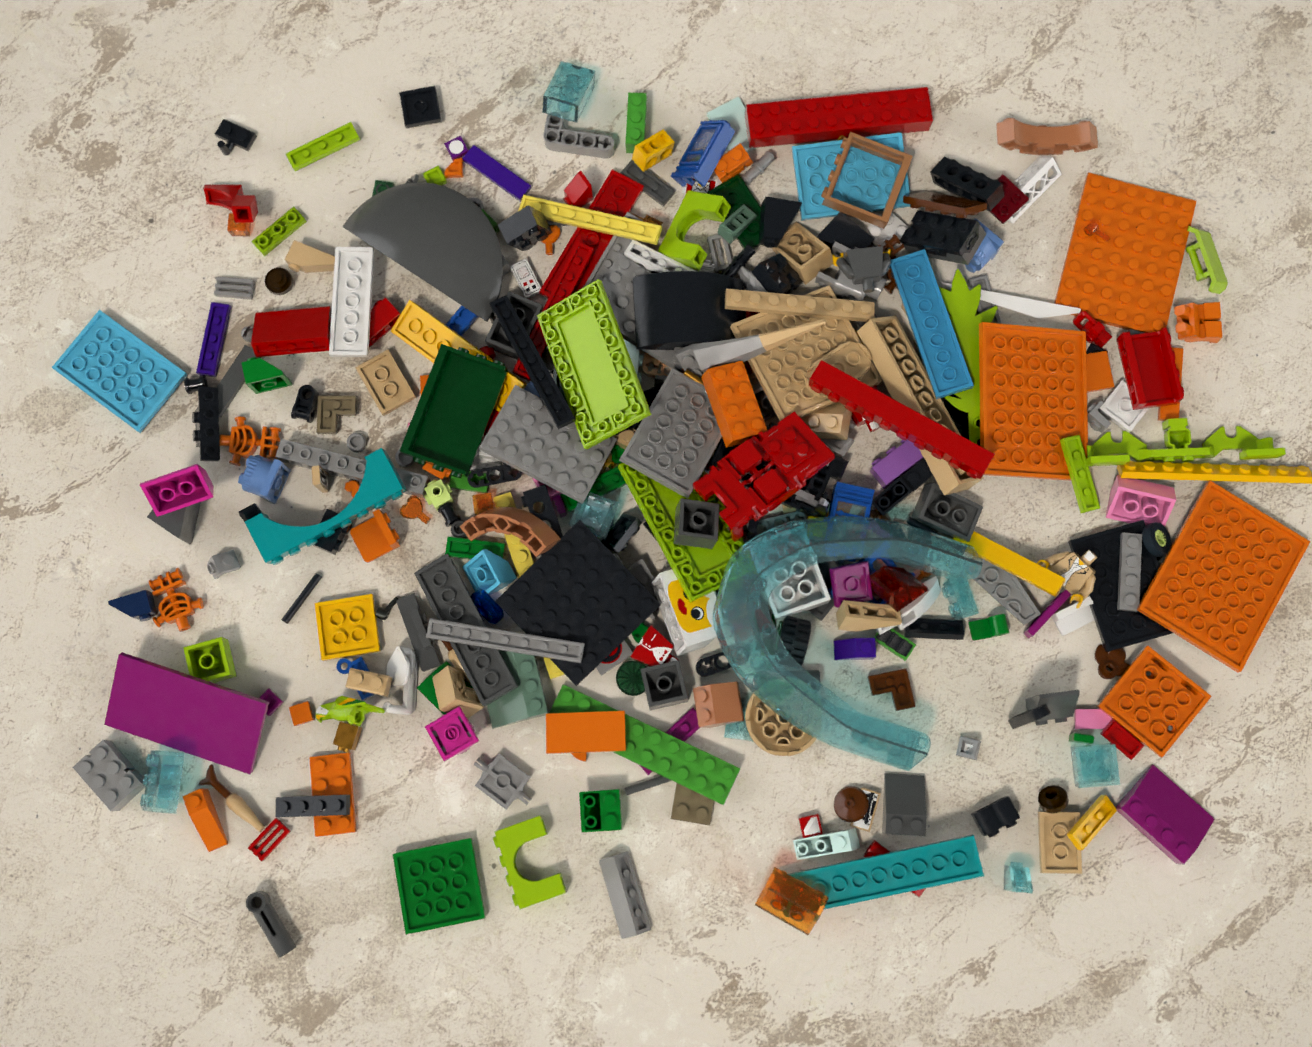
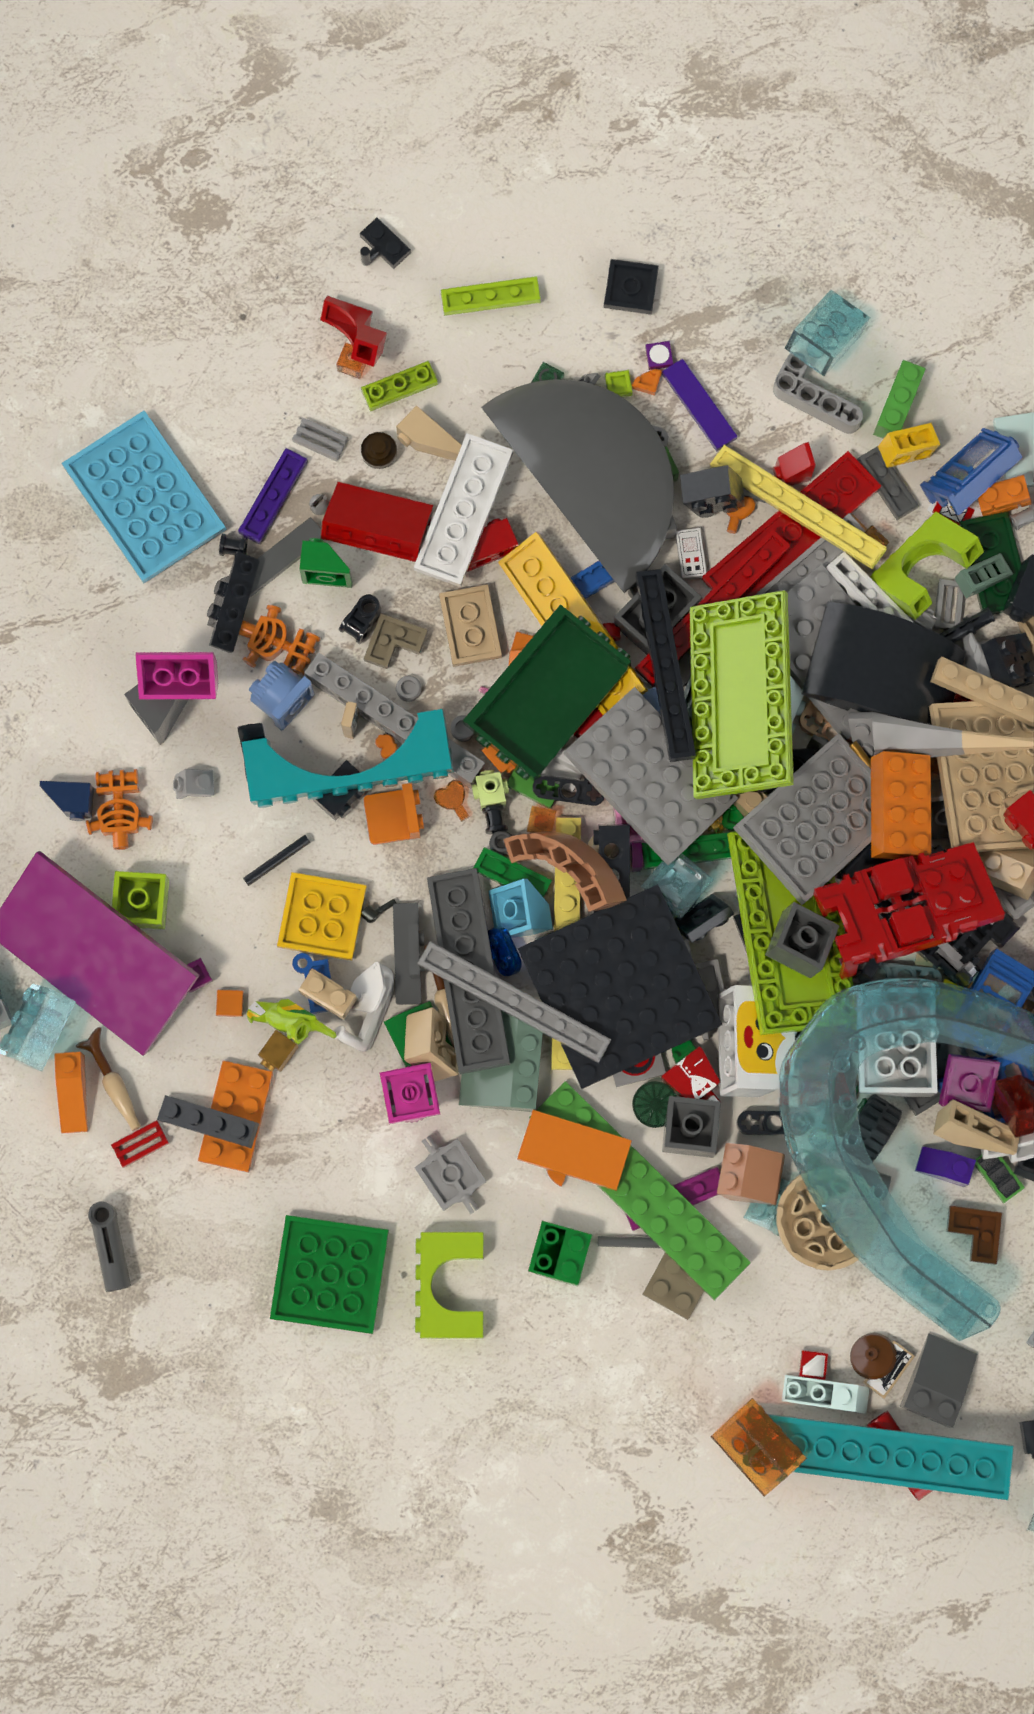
camera: 15 degrees right, 0 degrees up
(625, 895) = (553, 1367): light grey panel -> none

